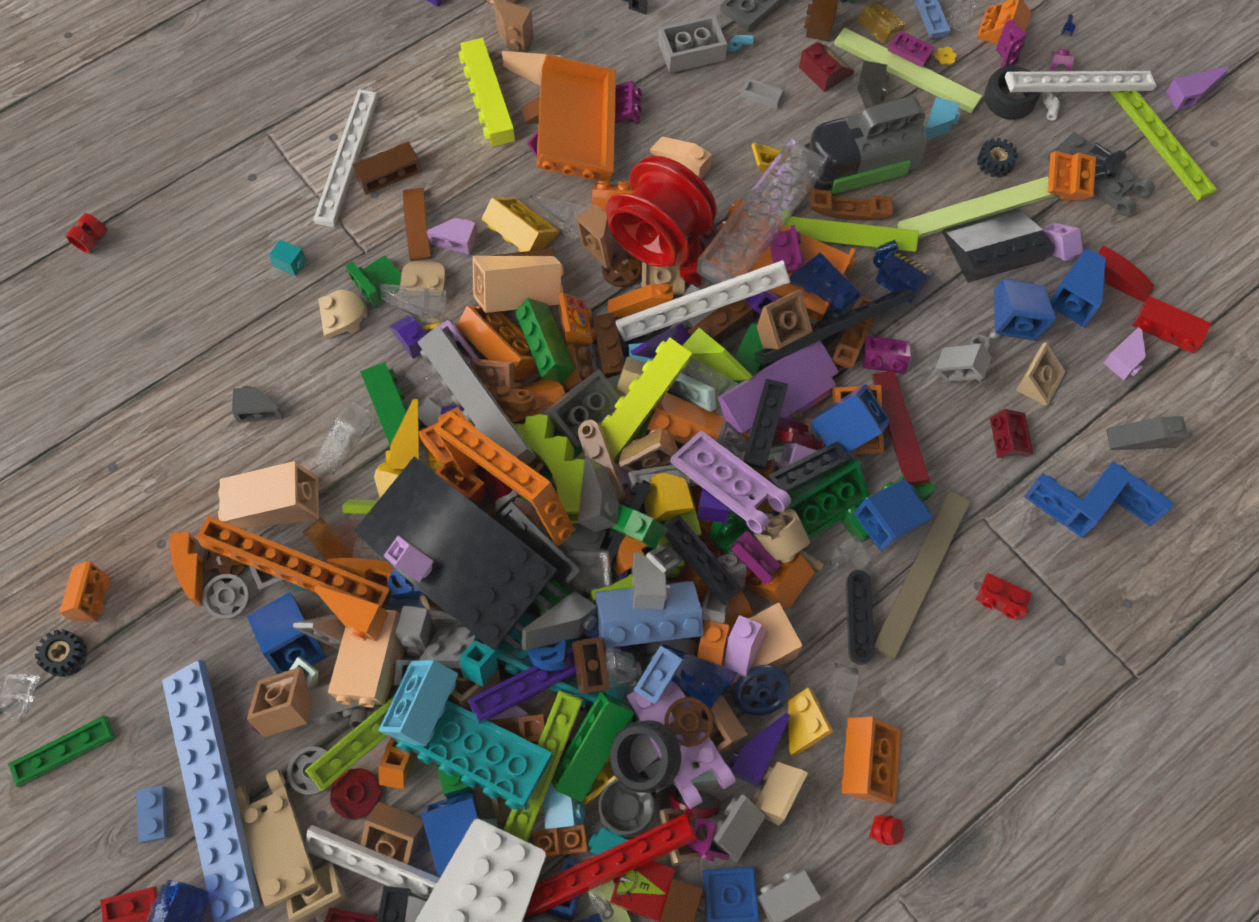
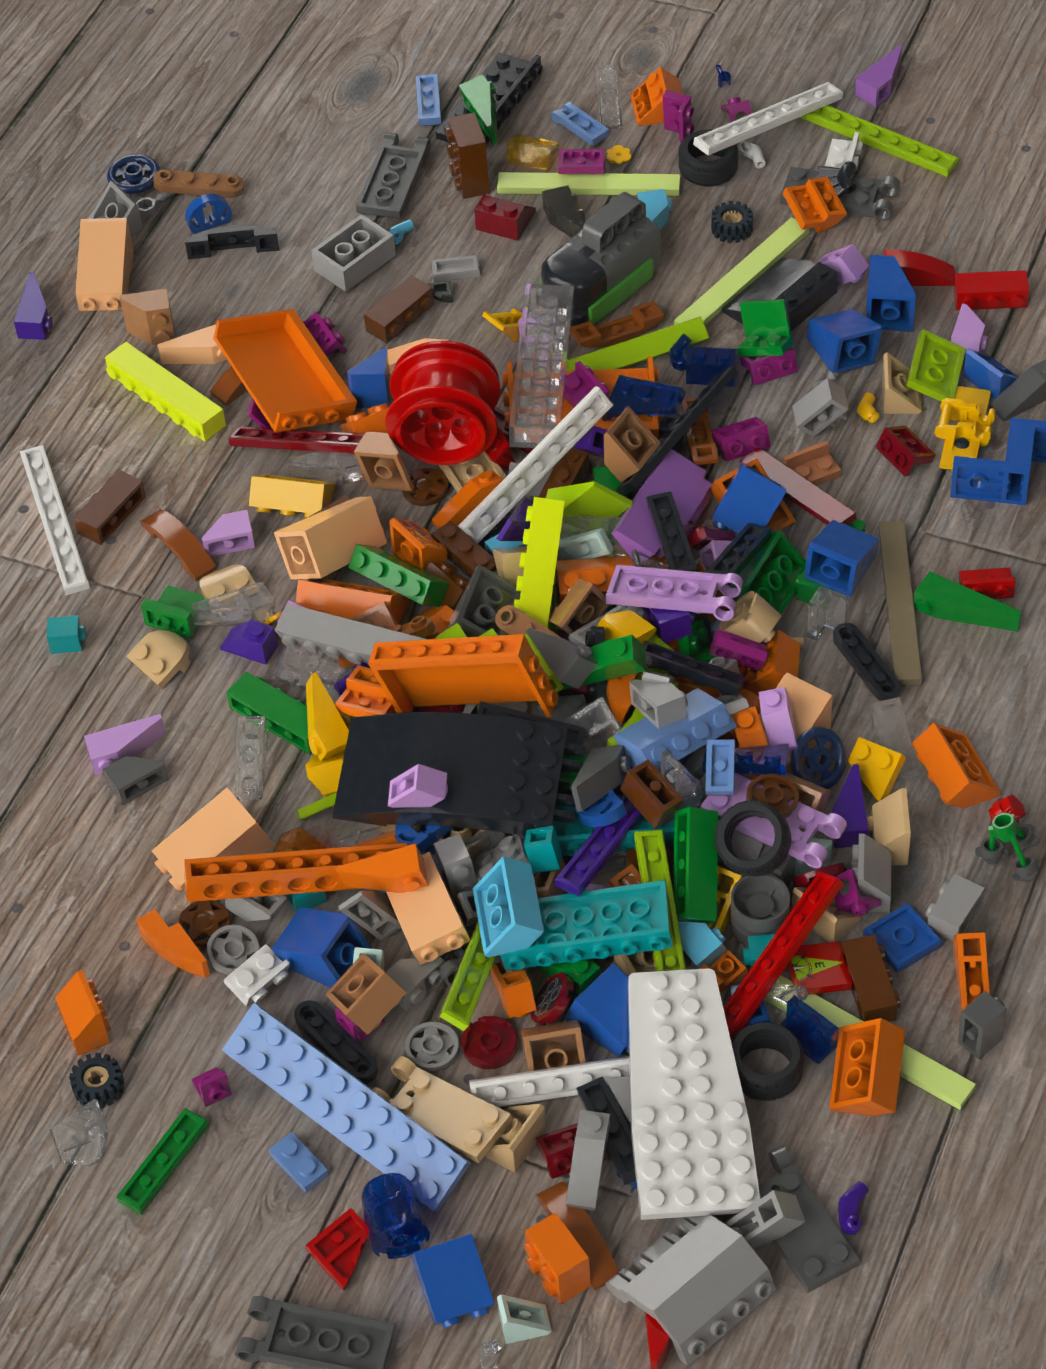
camera: 25 degrees left, 15 degrees down
(132, 715) = (212, 1086): none -> magenta bracket
(226, 630) = (256, 975): none -> white bracket
(244, 739) = (335, 1040): none -> black plate
(265, 372) = (123, 741): none -> lavender slope
(418, 788) = (552, 999): none -> tile
(549, 181) = (295, 440): none -> dark red tile
(631, 154) = (371, 380): none -> blue slope
(696, 107) = (399, 309): none -> reddish brown brick
(740, 107) = (442, 291): none -> pearl dark grey tile
(873, 859) = (1022, 838): none -> plant
(927, 409) = (814, 464): none -> nougat bracket
(950, 298) = (770, 367): none -> magenta bracket
(962, 269) = (765, 328): none -> green bracket
(965, 601) = (957, 603): none -> green slope
(1002, 380) = (866, 410): none -> yellow arm
(1079, 446) = (973, 427): none -> yellow piece
(1082, 373) = (935, 366): none -> lime plate
(1124, 139) = (844, 151): none -> white bracket
(1124, 401) = (987, 373): none -> blue slope

